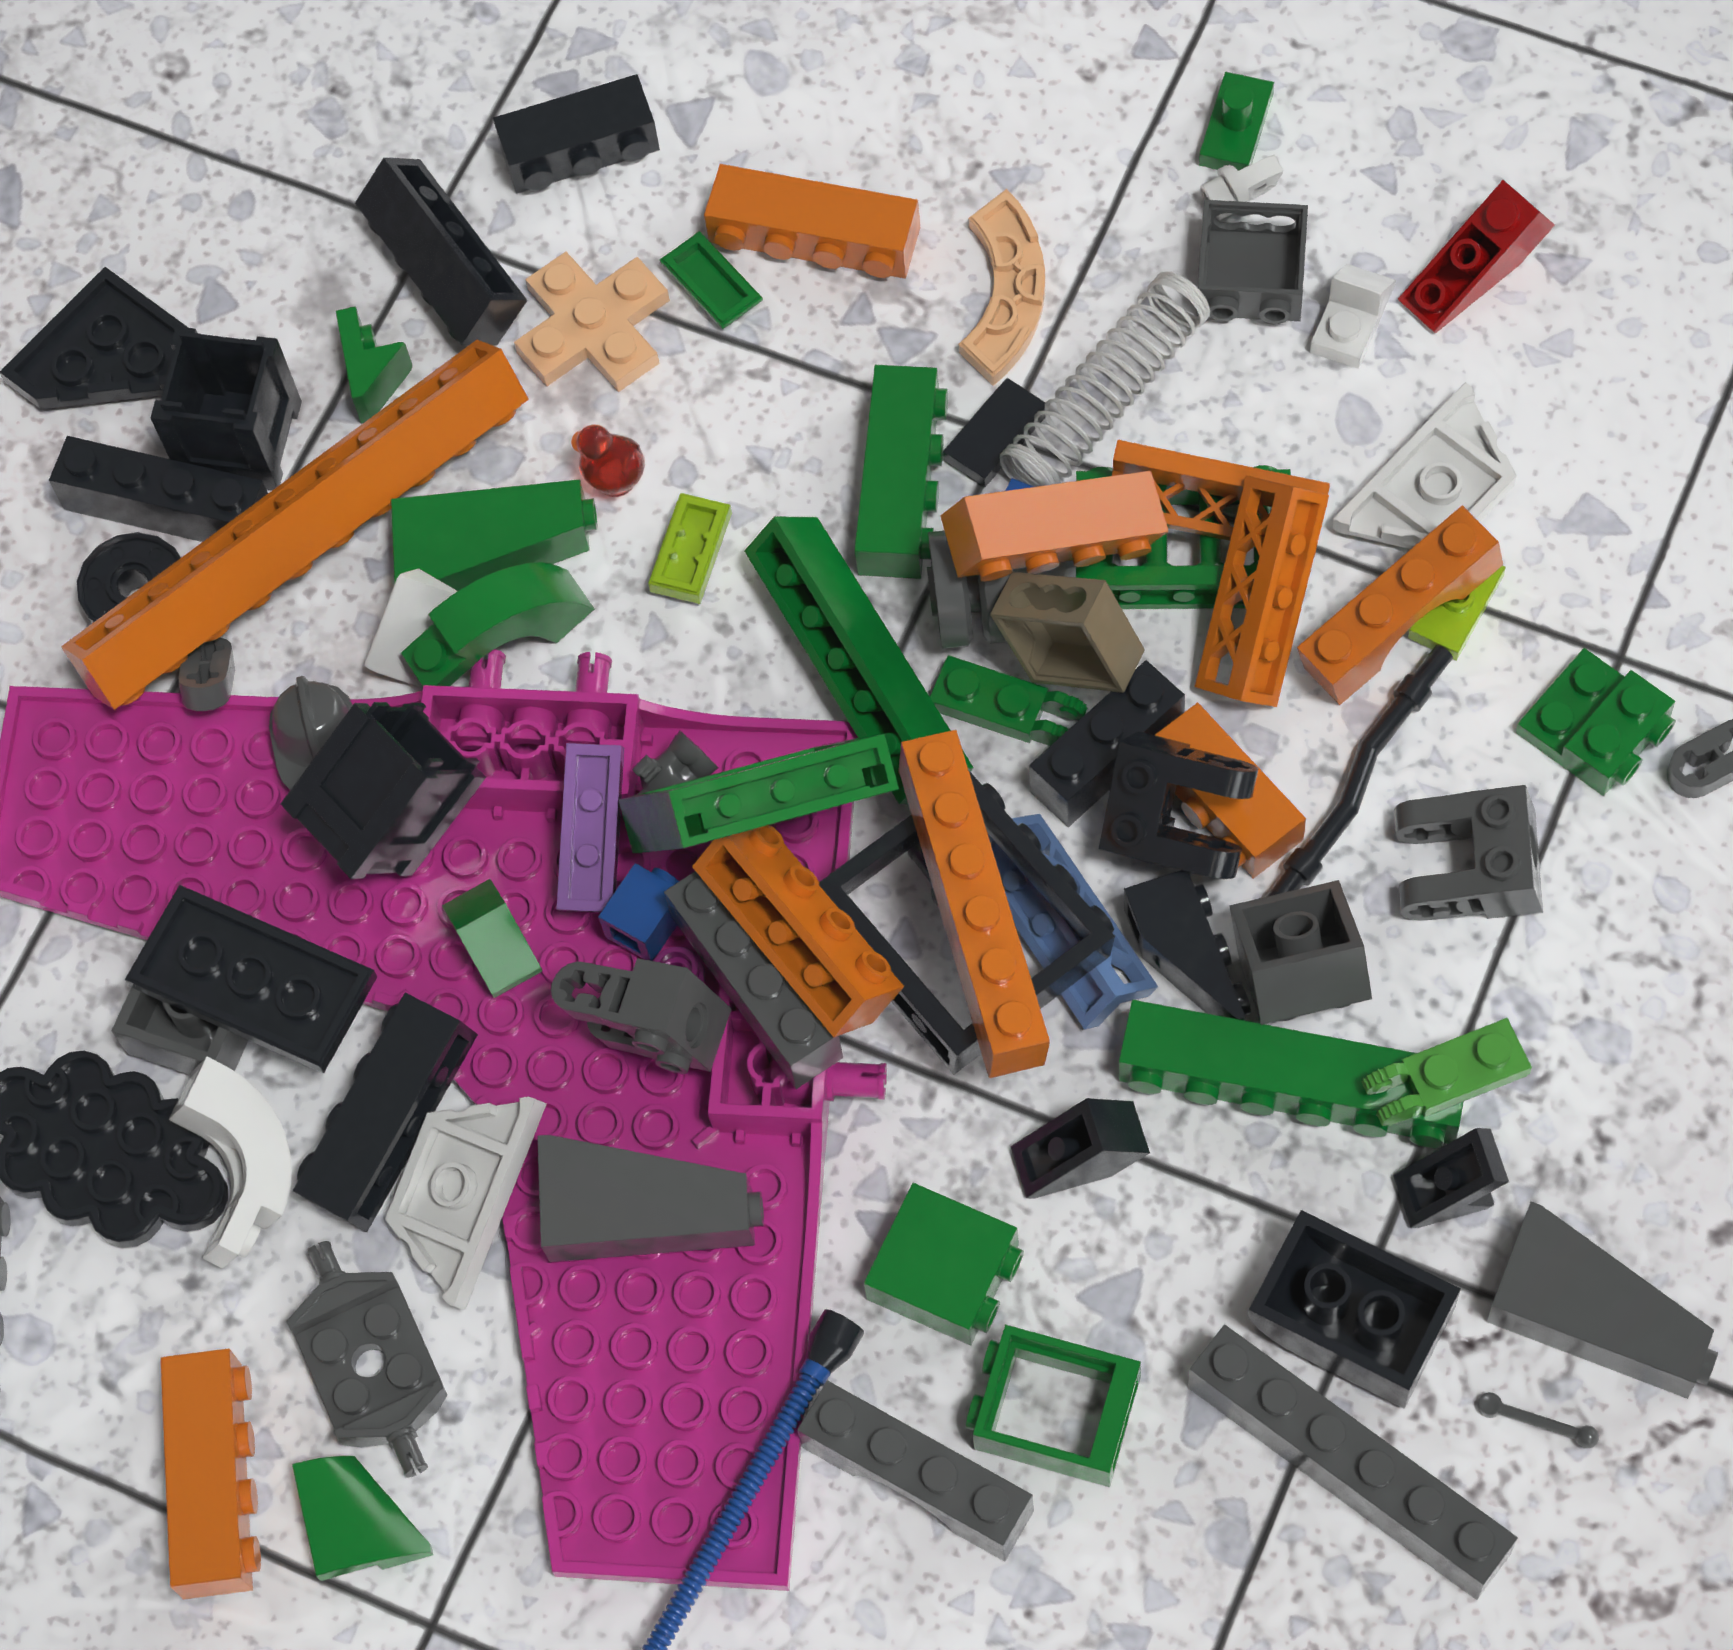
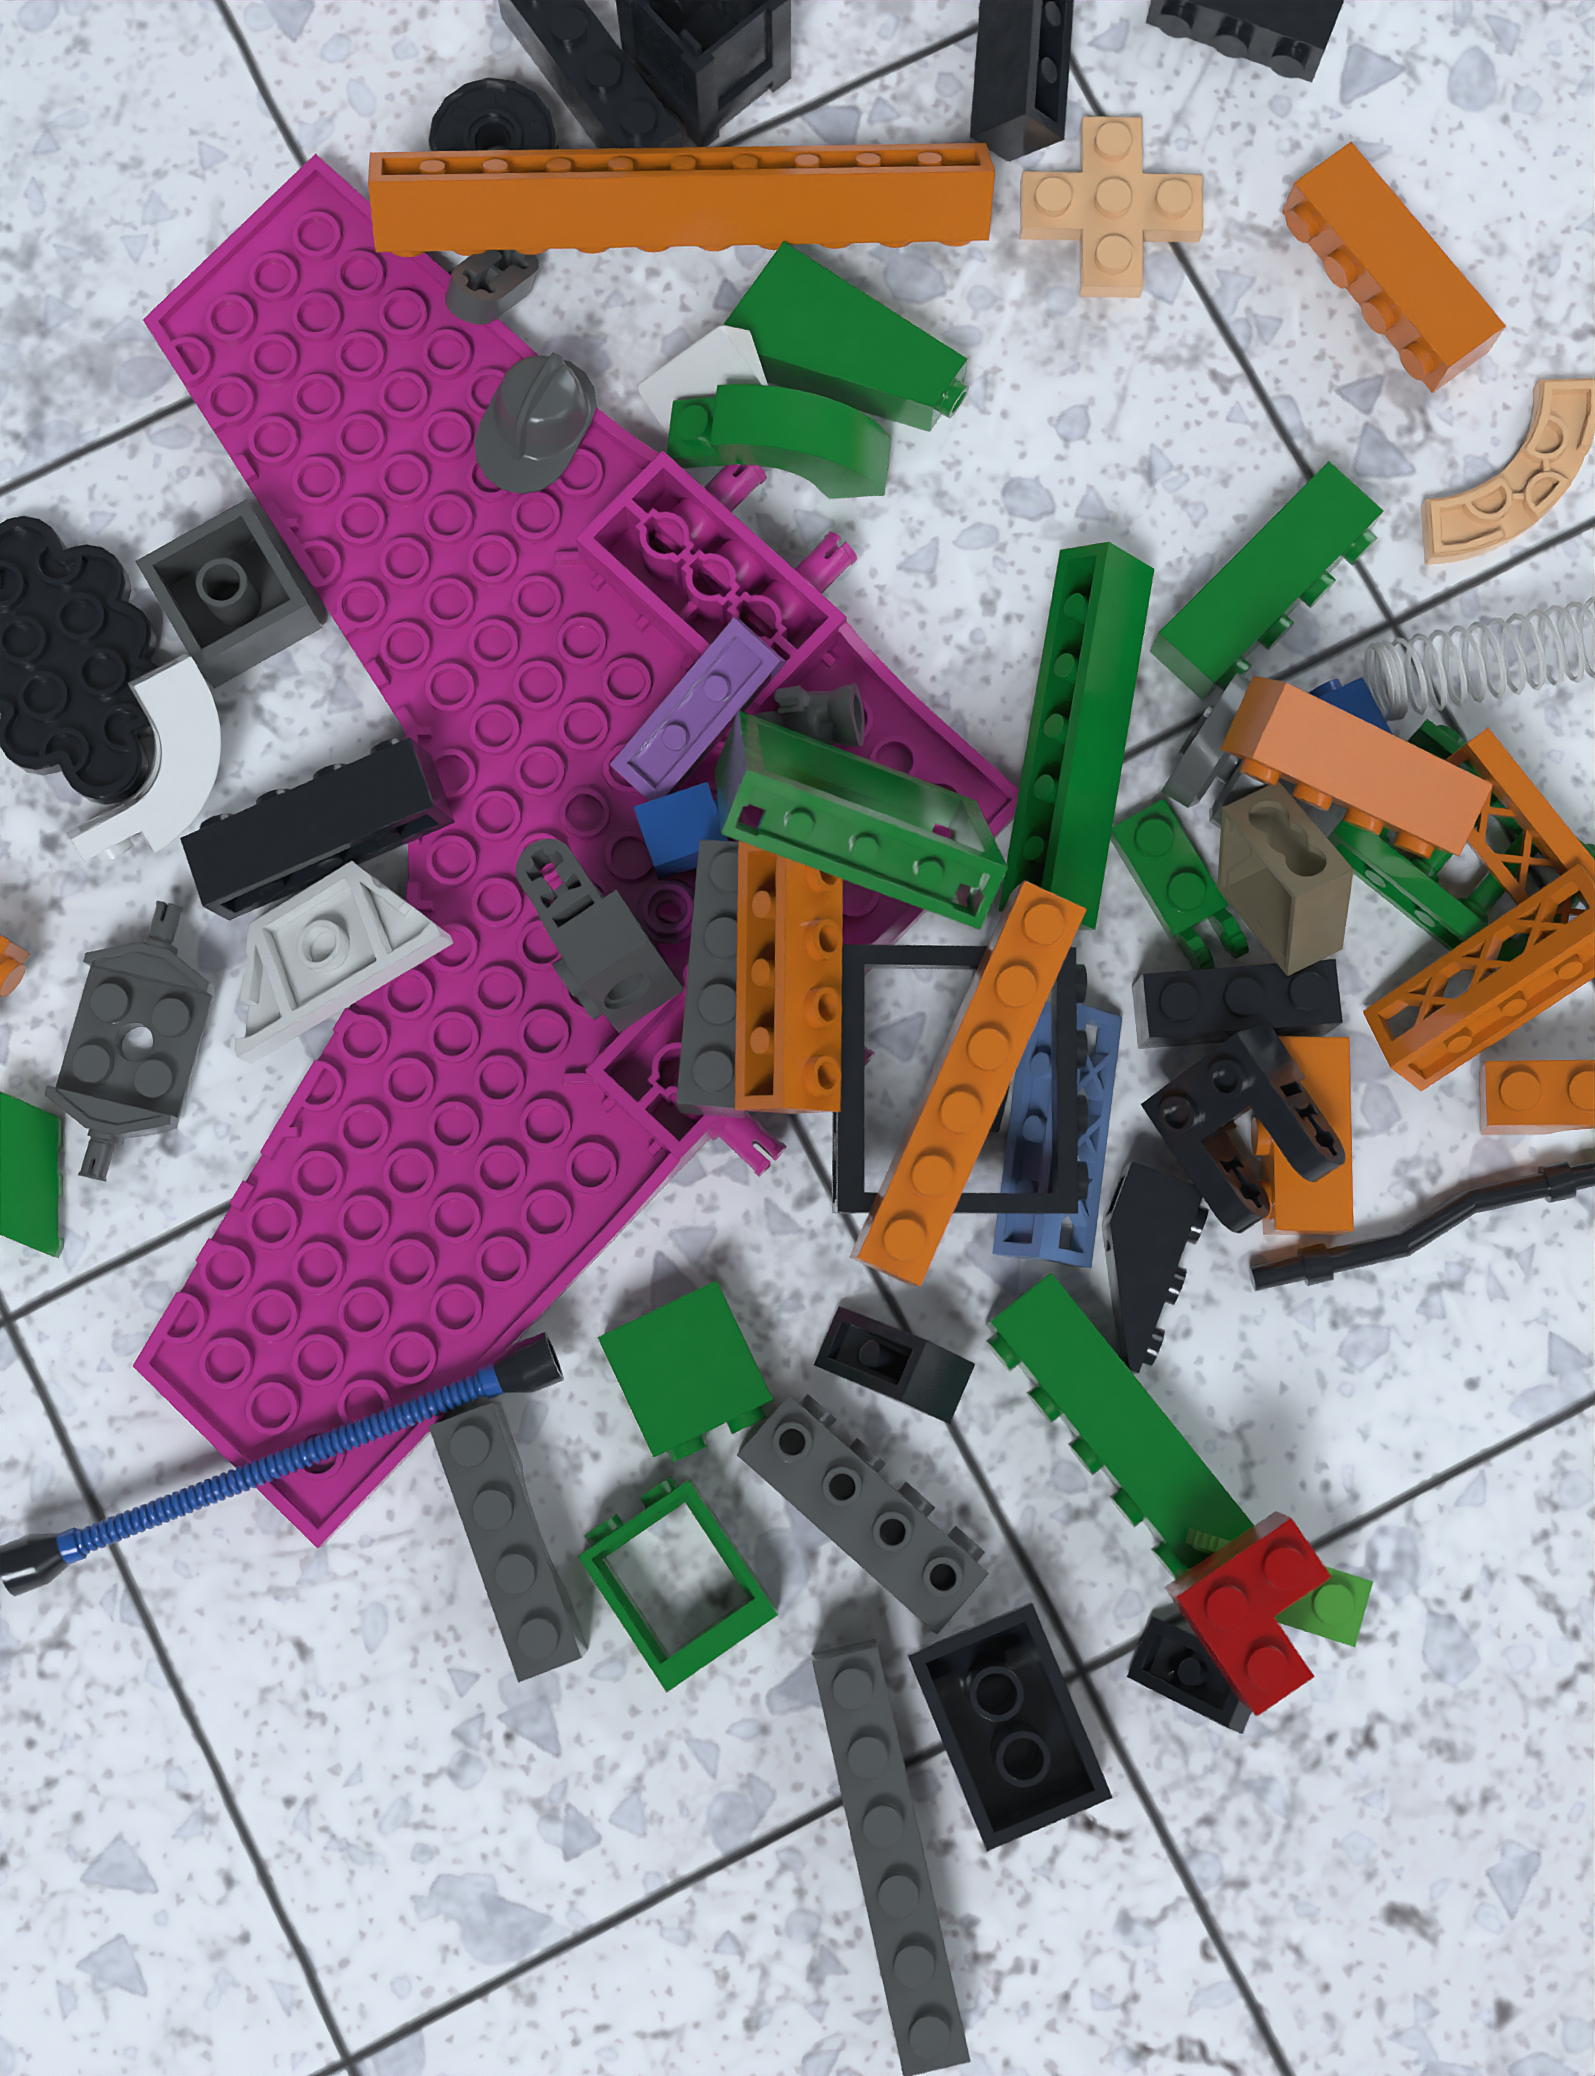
camera: 30 degrees right, 15 degrees up
(251, 978) = (288, 612): black tile -> none
(371, 370) = (870, 96): green slope -> none
(383, 789) = (535, 527): black container -> none
(492, 938) = (535, 740): slope -> none
(608, 460) = (1011, 359): clear red animal -> none
(637, 1203) = (450, 1091): dark grey slope -> none
(690, 548) = (1017, 504): lime plate -> none
(711, 280) = (1251, 252): green tile -> none
(991, 430) = (1387, 611): black tile -> none
(1141, 1258) = (863, 1513): none -> dark grey brick
(1301, 952) = (1240, 1356): dark grey brick -> none
(1431, 1096) = (1234, 1606): none -> red brick
(1491, 1406) = (1060, 1898): dark grey hinge -> none
(1505, 854) = (1509, 1408): dark grey brick -> none
(1596, 1308) = (1223, 1887): dark grey slope -> none

